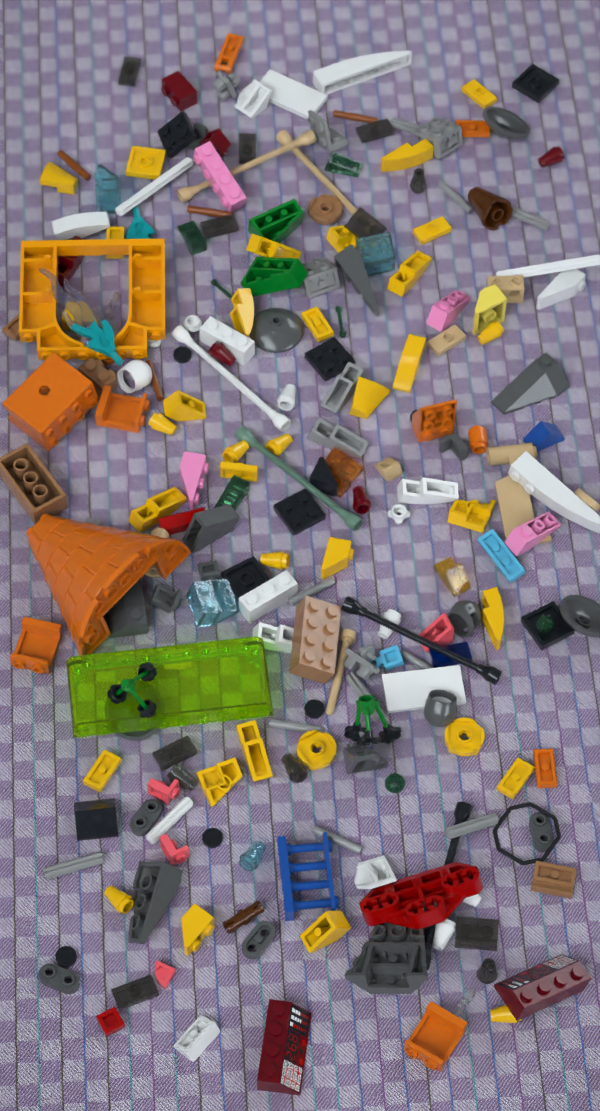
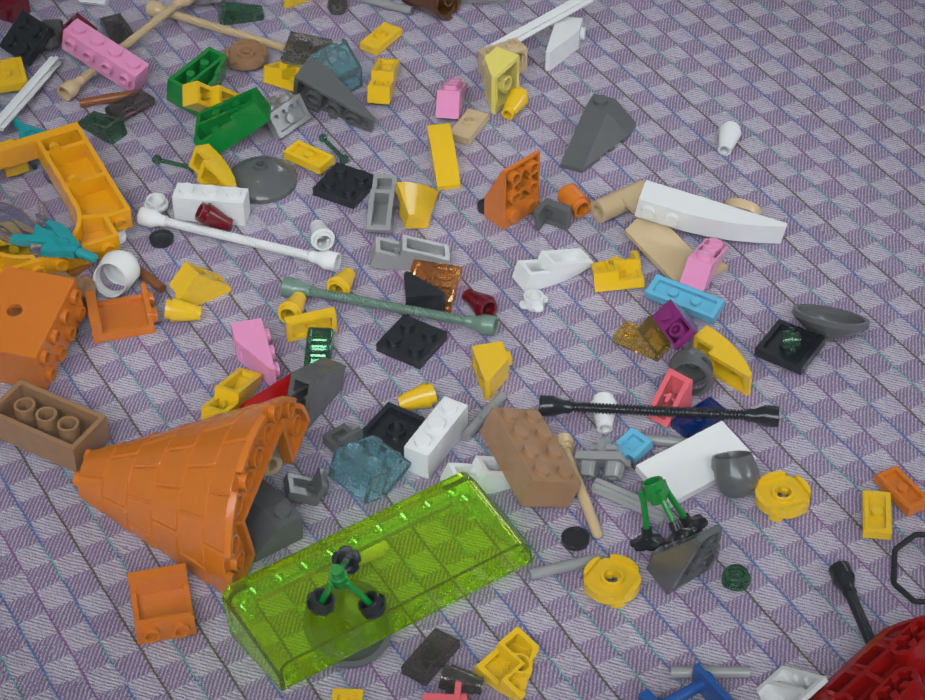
camera: 25 degrees left, 15 degrees down
(253, 751) = (533, 611): yellow slope -> none
(294, 769) = (601, 612): clear smoke cone -> none
(389, 469) = (489, 263): tan slope -> none
(471, 826) = (867, 584): light grey axle -> none
(477, 577) = (675, 324): none -> magenta slope
(544, 435) = (644, 170): blue slope -> none

